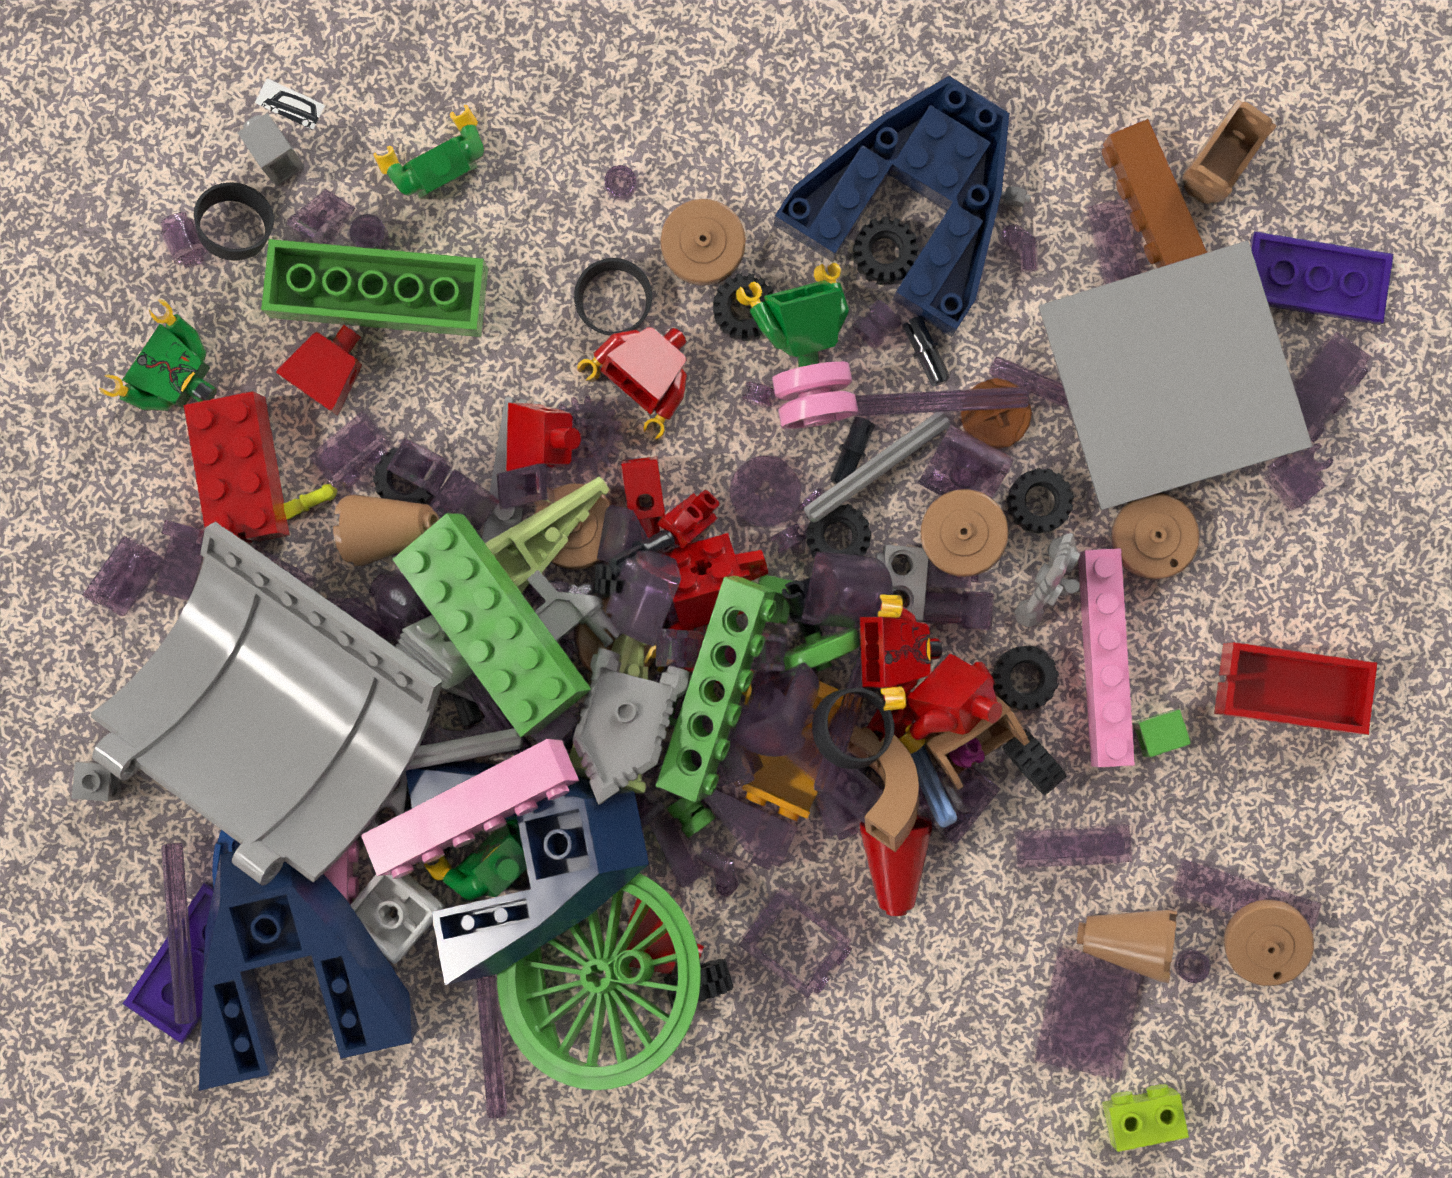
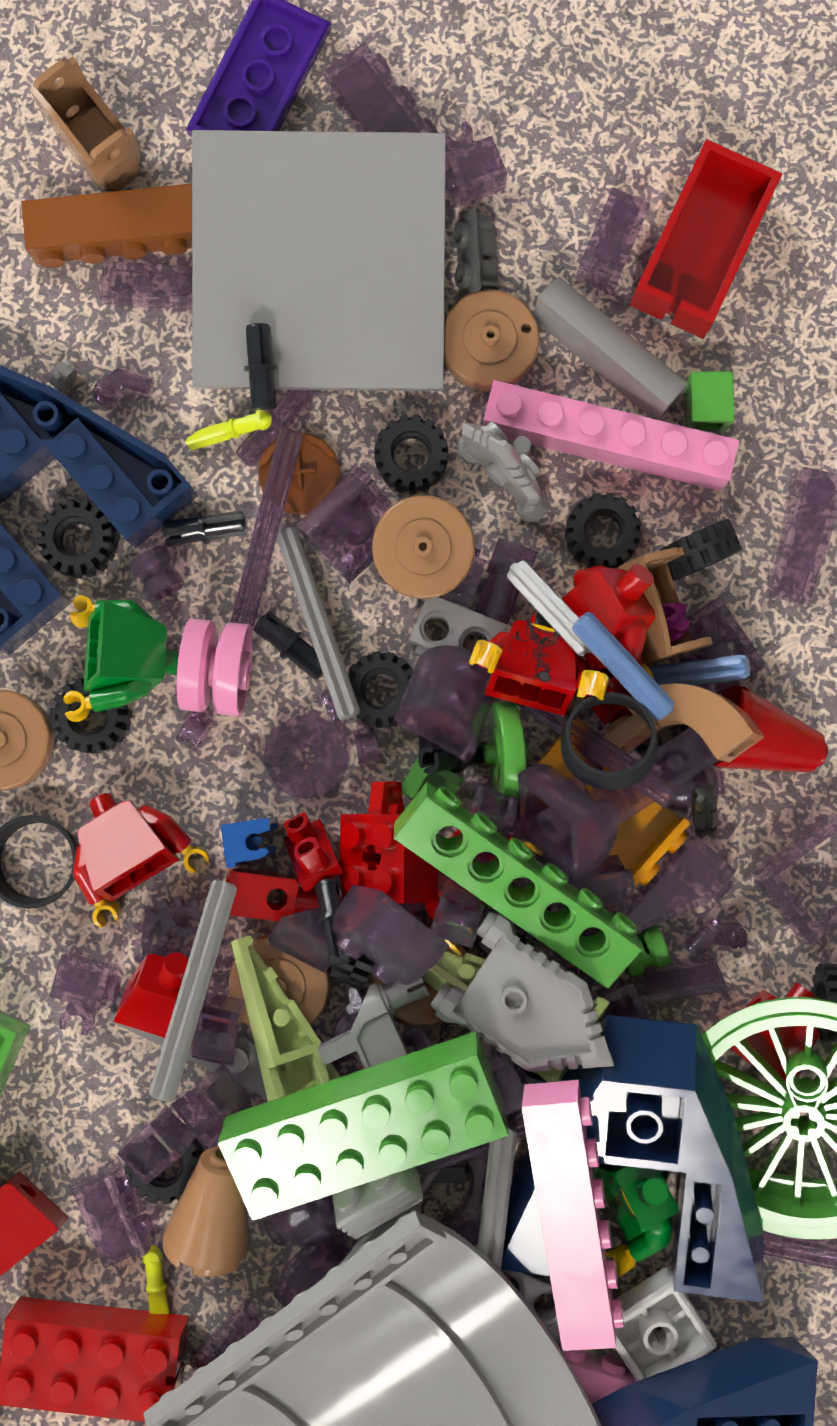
camera: 65 degrees left, 0 degrees up
(527, 370) = (84, 984): none -> clear purple brick
(556, 457) = (192, 991): none -> light grey axle
(682, 460) = (241, 840): none -> blue hinge
(820, 828) = (704, 811): none -> pearl dark grey axle
(916, 719) = (623, 665): none -> medium blue axle
(946, 651) = (547, 603): none -> axle
(1013, 345) = (232, 428): none -> neon yellow piece
(1071, 356) = (260, 366): none -> black axle
(1179, 636) = (608, 349): none -> light grey brick
(1237, 497) = (473, 239): none -> dark grey hinge
(1270, 612) = (612, 241): none -> clear purple brick

